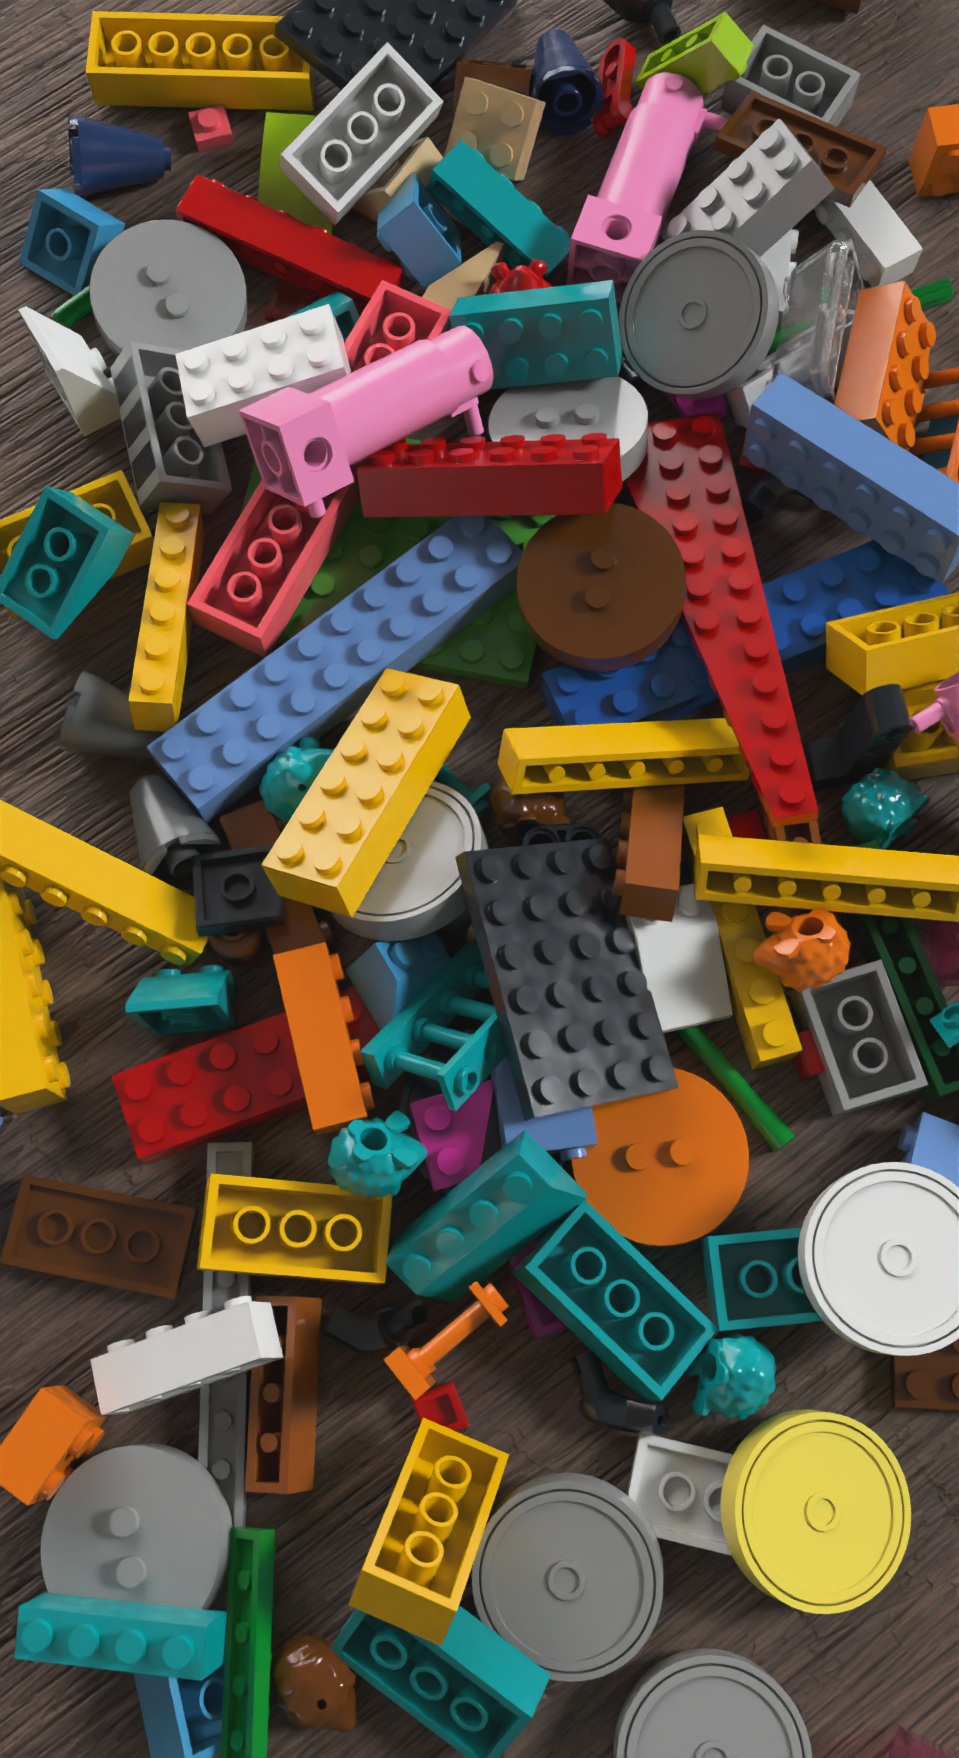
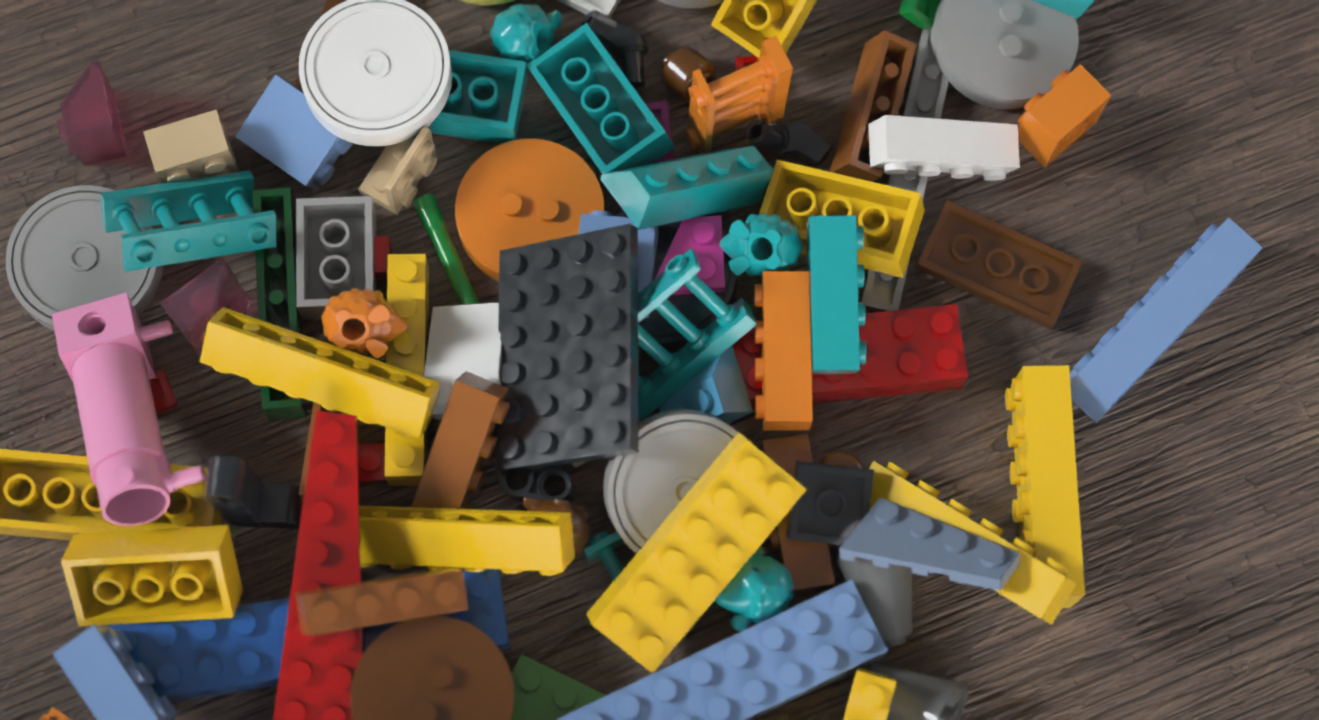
camera: 170 degrees left, 0 degrees up
(133, 852) = (928, 546): none -> sand blue wing
(185, 1002) = (895, 423): teal slope -> none
(279, 1114) = (834, 294): none -> teal brick
(520, 1384) = (679, 67): none -> reddish brown head
(682, 651) = (381, 601): none -> dark orange brick
(824, 1158) = (399, 170): none -> tan bracket
(882, 807) = (246, 437): teal animal -> none

